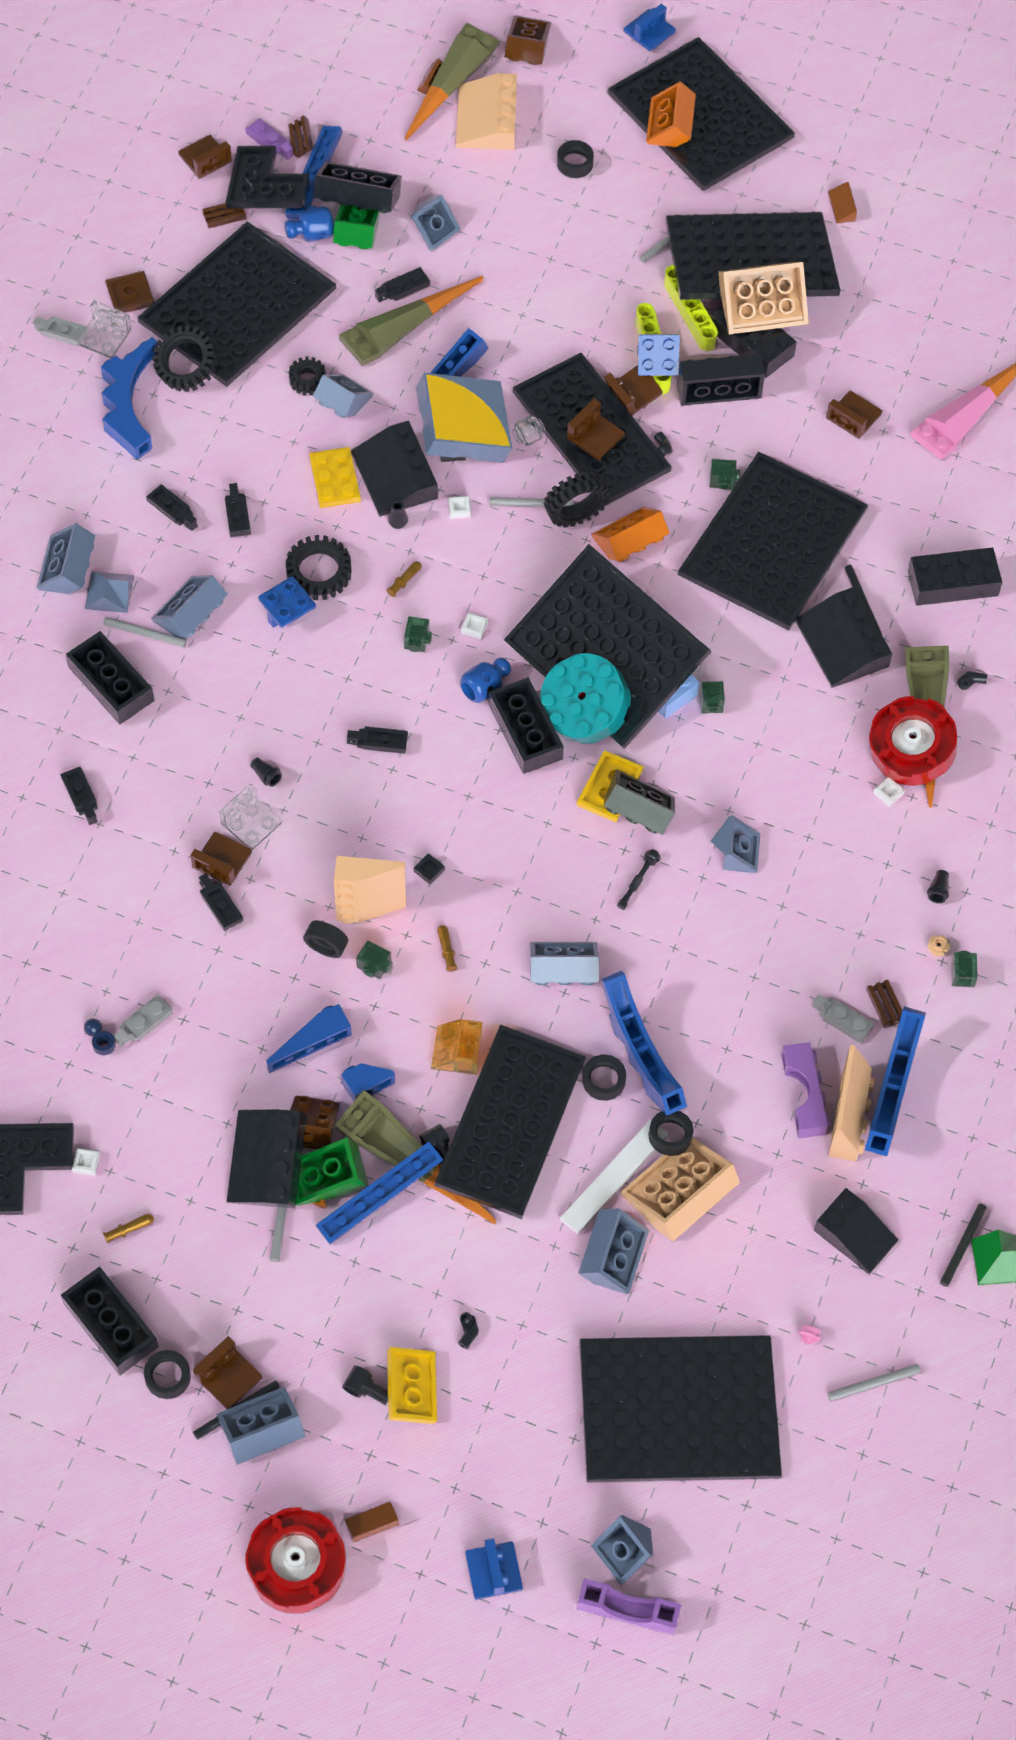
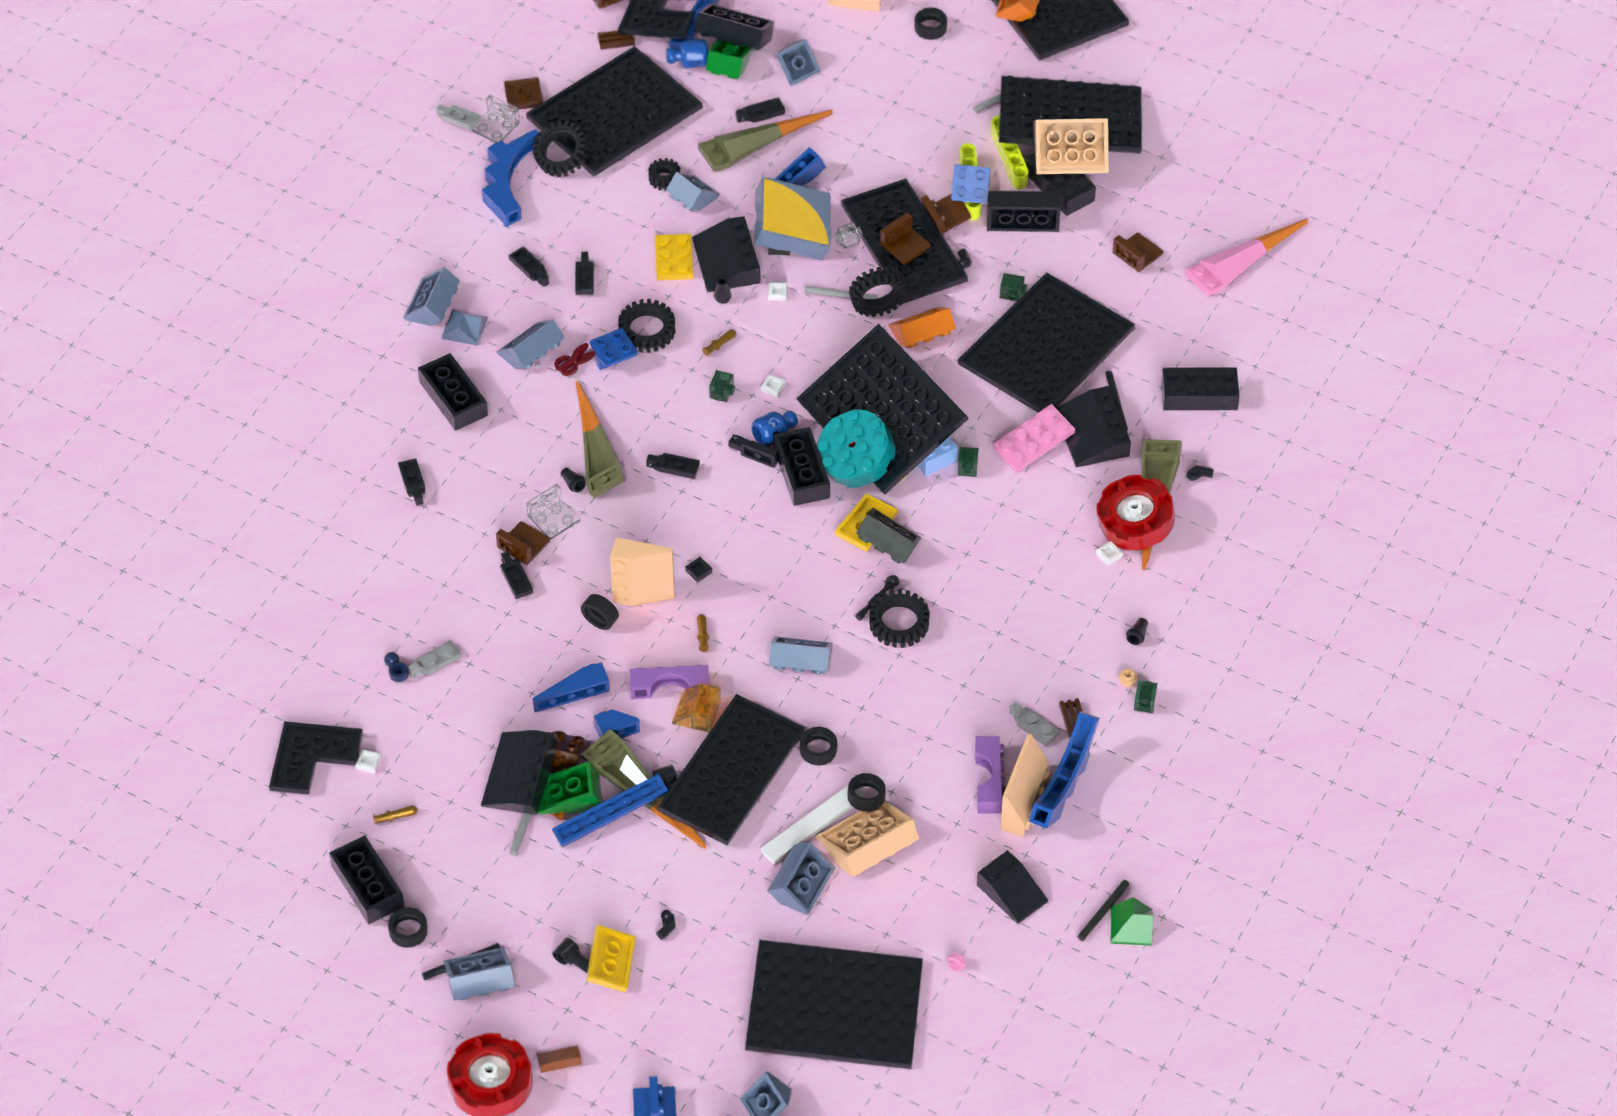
camera: 10 degrees right, 10 degrees down
(145, 632) = (489, 361): light grey bar -> none
(226, 1373) = (456, 930): reddish brown bracket -> none
(244, 618) = (576, 359): none -> dark red piece
(296, 749) = (601, 461): none -> olive plate
(374, 960) = (638, 634): clear green brick -> none
(392, 1019) = (647, 680): none -> medium lavender arch
(467, 711) = (754, 451): none -> black hinge
(641, 1052) = (846, 710): blue arch -> none
(663, 926) = (899, 600): none -> black tyre
(739, 845) = (969, 579): sand blue slope -> none
(780, 659) = (1033, 438): none -> bright pink plate
(843, 203) = (1161, 82): dark orange slope -> none
(873, 1382) = (1005, 1005): light grey bar -> none

